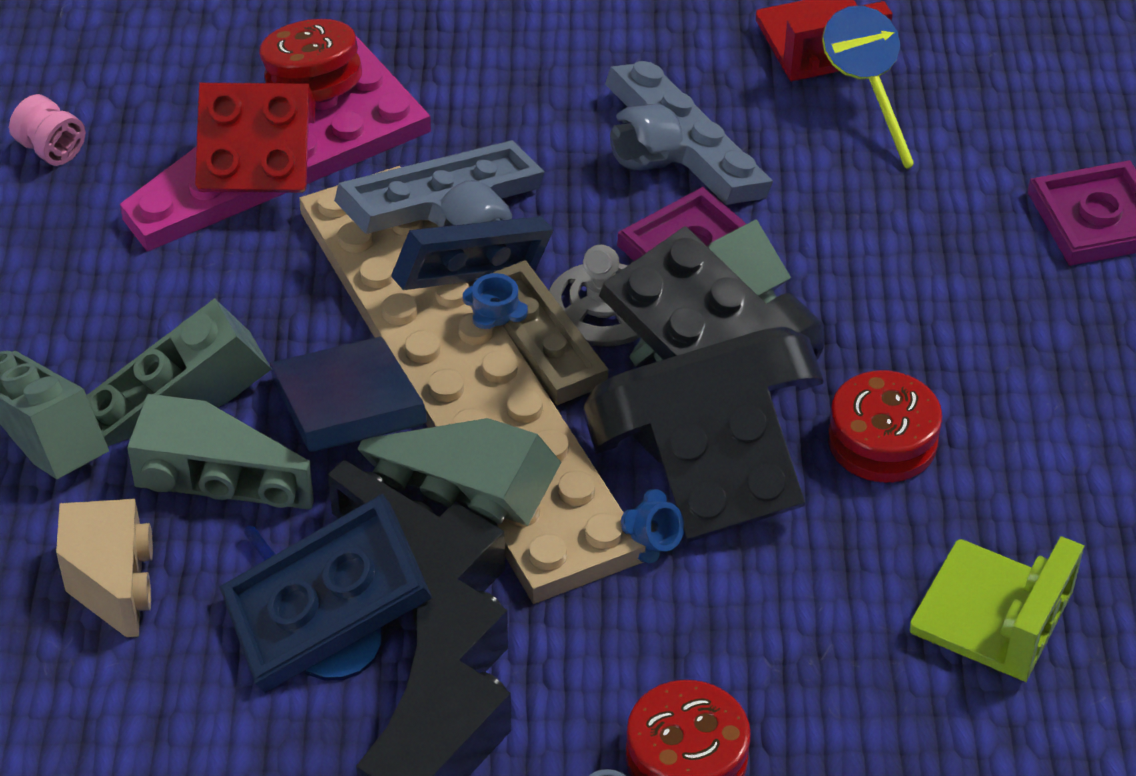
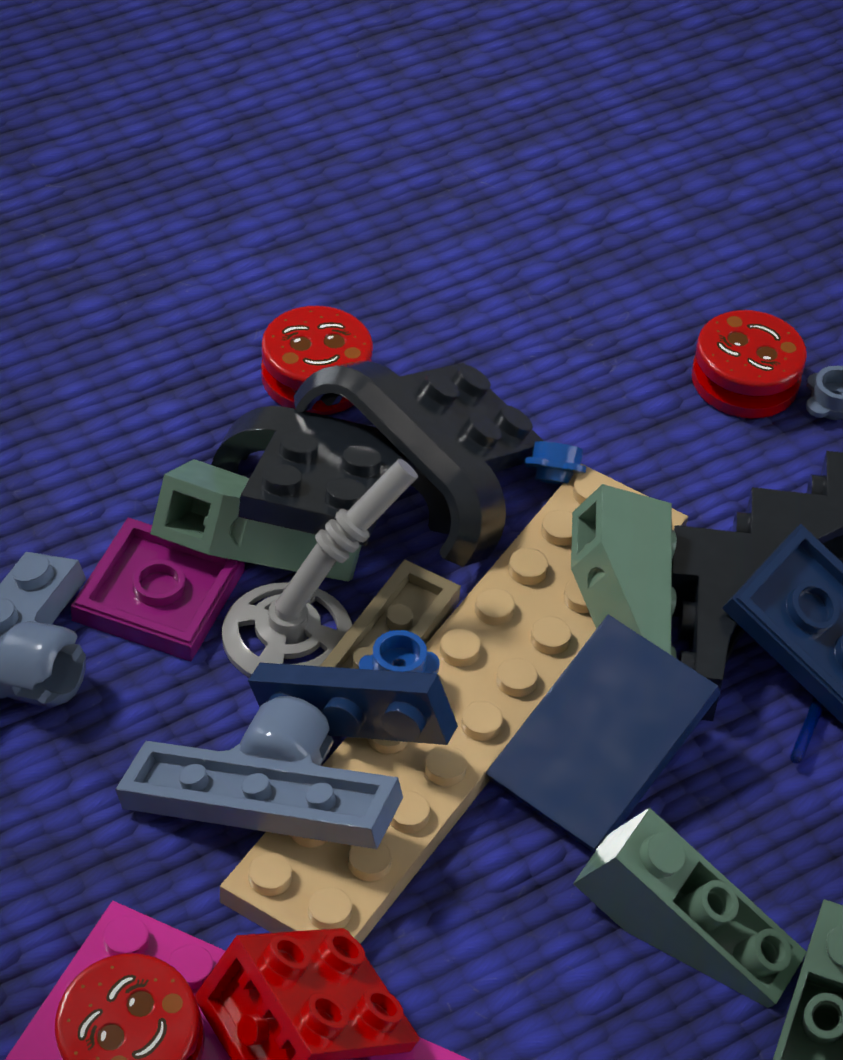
camera: 125 degrees left, 0 degrees up
(209, 453) = (756, 823): sand green slope -> none
(998, 606) = (461, 226): lime bracket -> none

